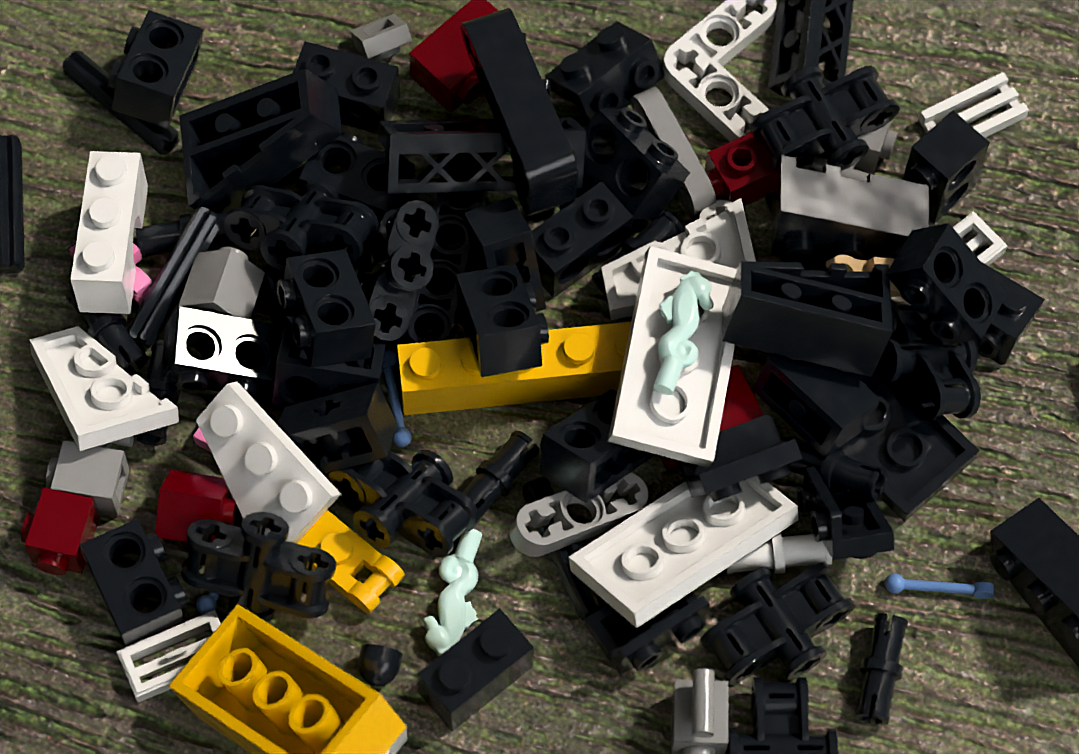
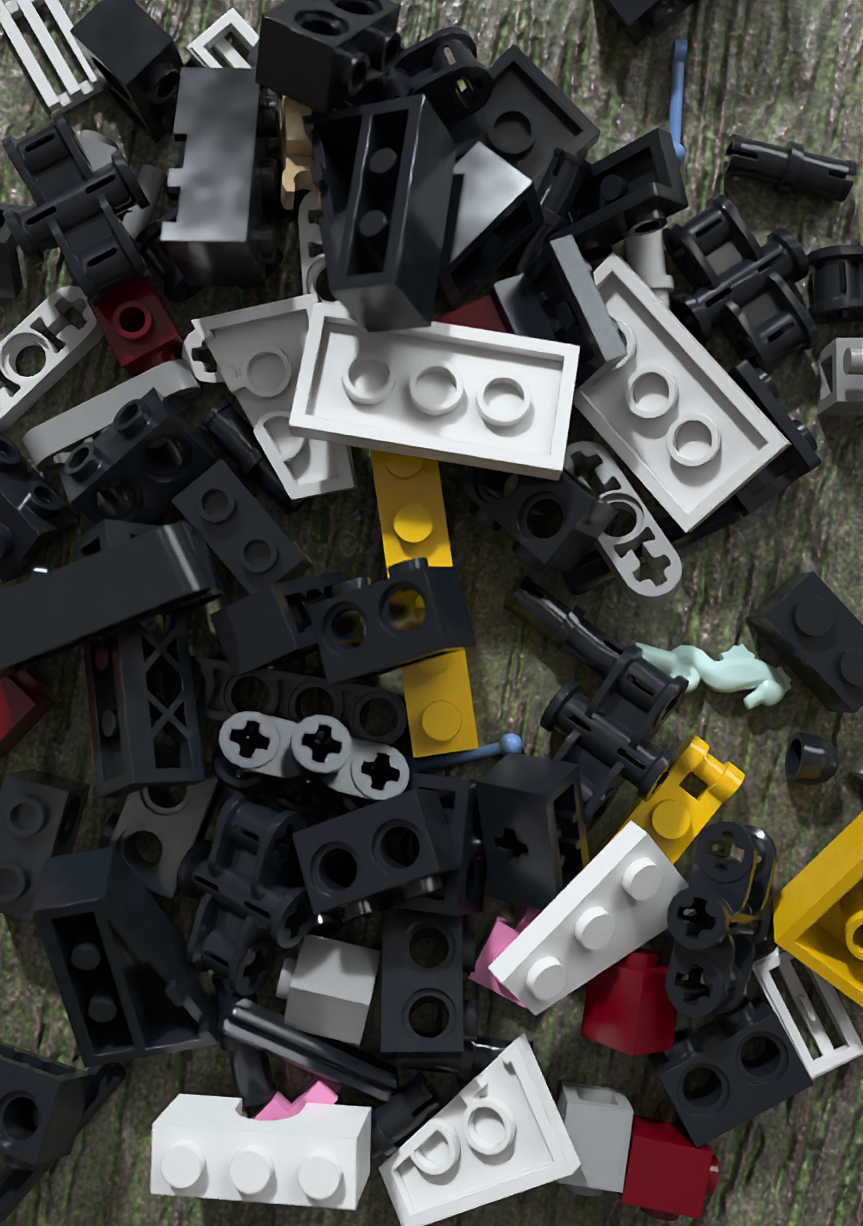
camera: 85 degrees left, 20 degrees up
(683, 313) = (388, 379): light aqua animal -> none

